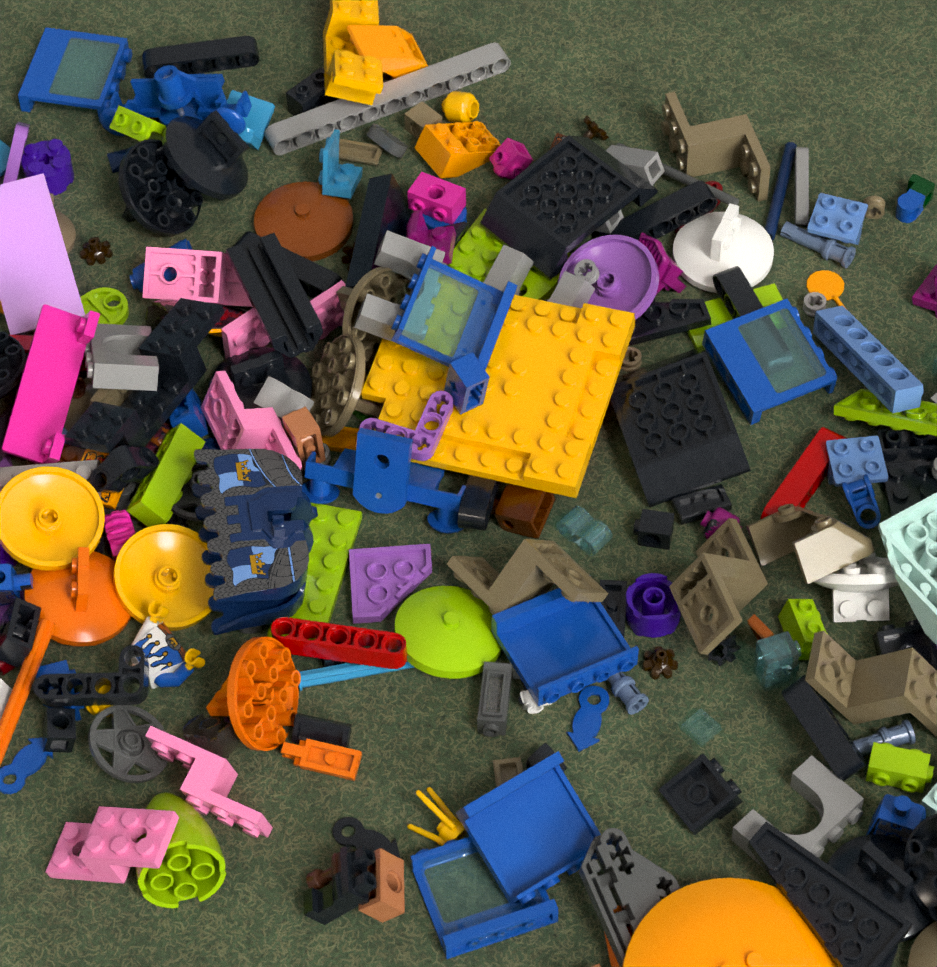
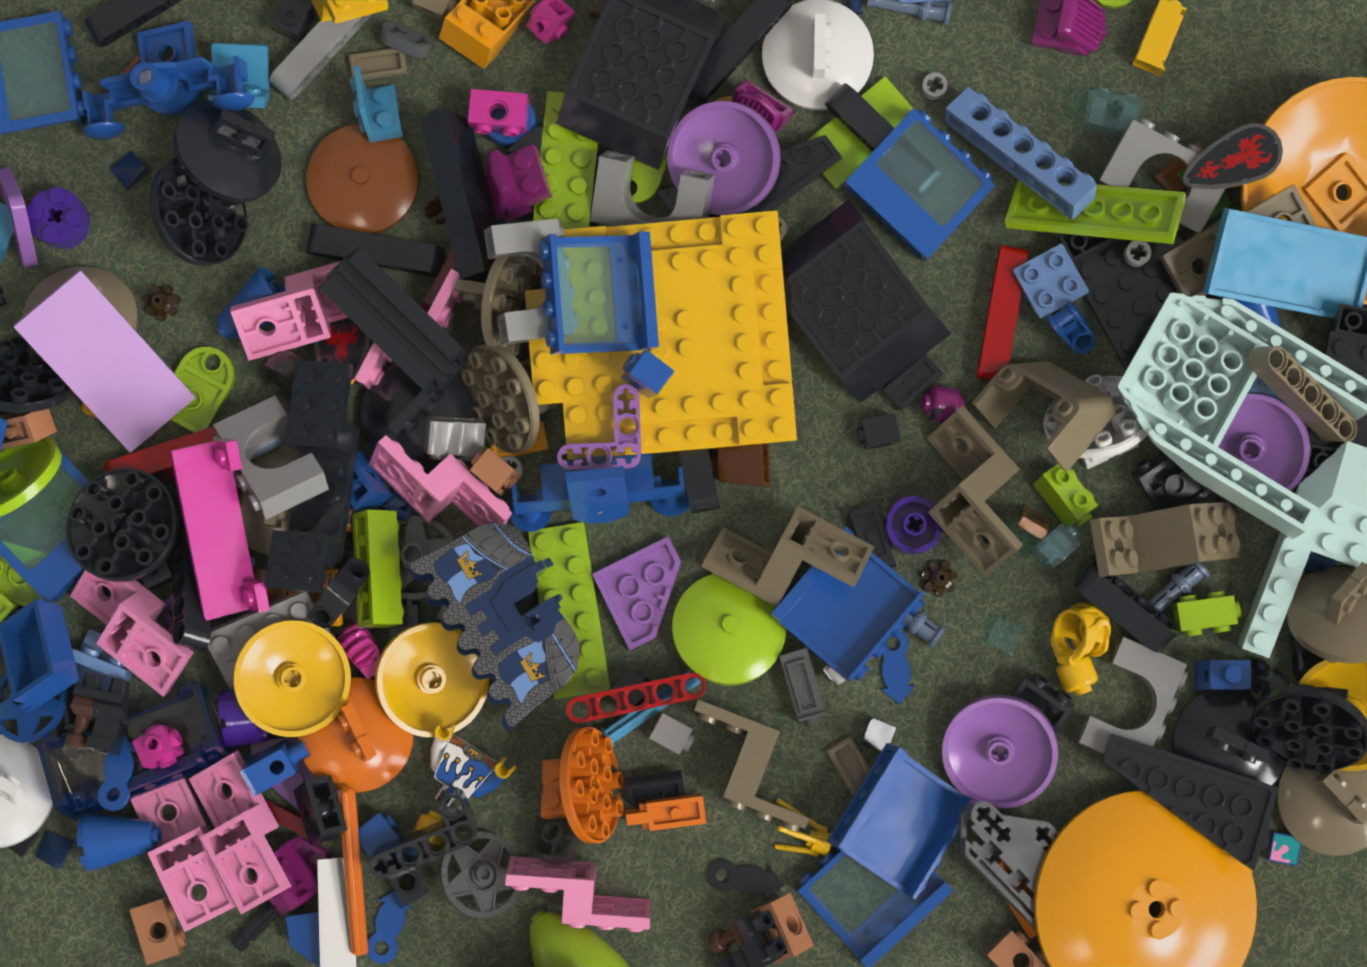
camera: 20 degrees left, 30 degrees up
(136, 125) = (142, 140): lime panel -> none
(357, 695) = (672, 734): none -> light grey brick
(417, 735) = (751, 766): none -> dark tan bracket
(582, 267) = (704, 163): light grey bush -> none
(584, 530) = (811, 459): clear light blue axle -> none
(658, 806) = (1000, 751): none -> medium lavender dish
(755, 775) = (1077, 677): none -> yellow head
(775, 735) = (1087, 630): none -> yellow helmet
(828, 284) = (937, 55): light orange piece -> none

